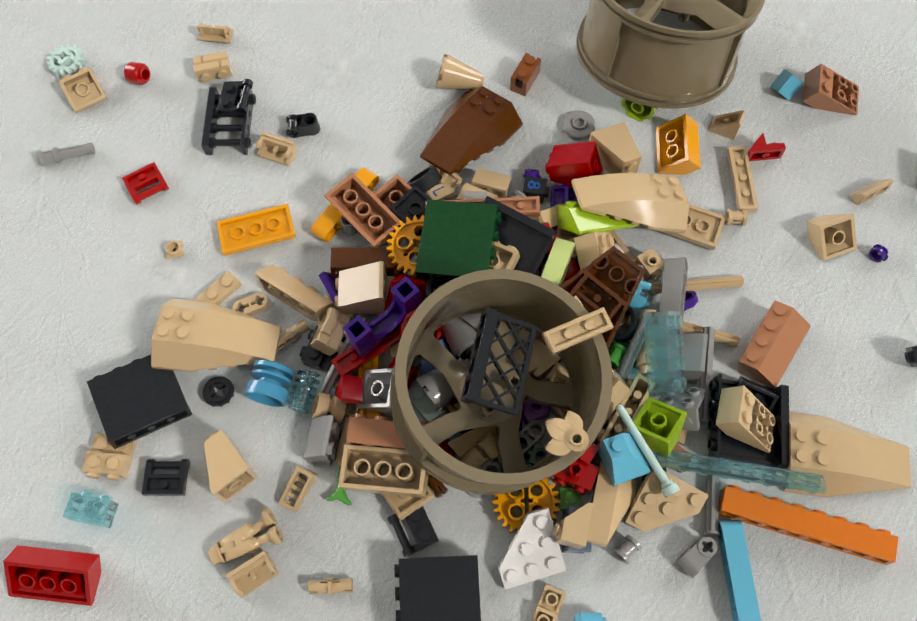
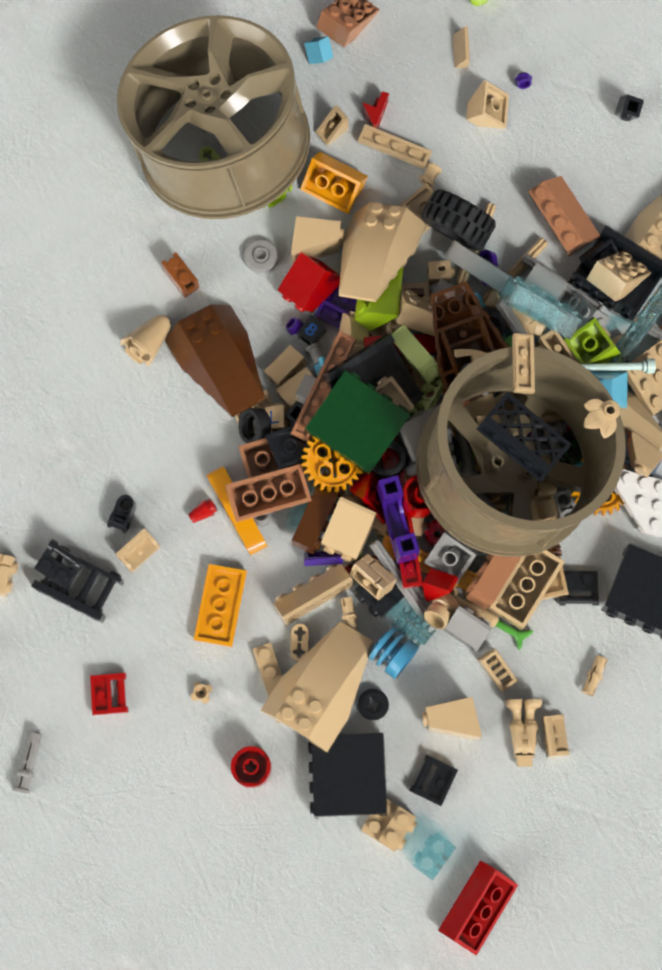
camera: 65 degrees left, 10 degrees up
(118, 314) = (259, 775): none -> red brick
(331, 179) = (203, 510): none -> red cone
(705, 247) = (458, 219): none -> black tyre

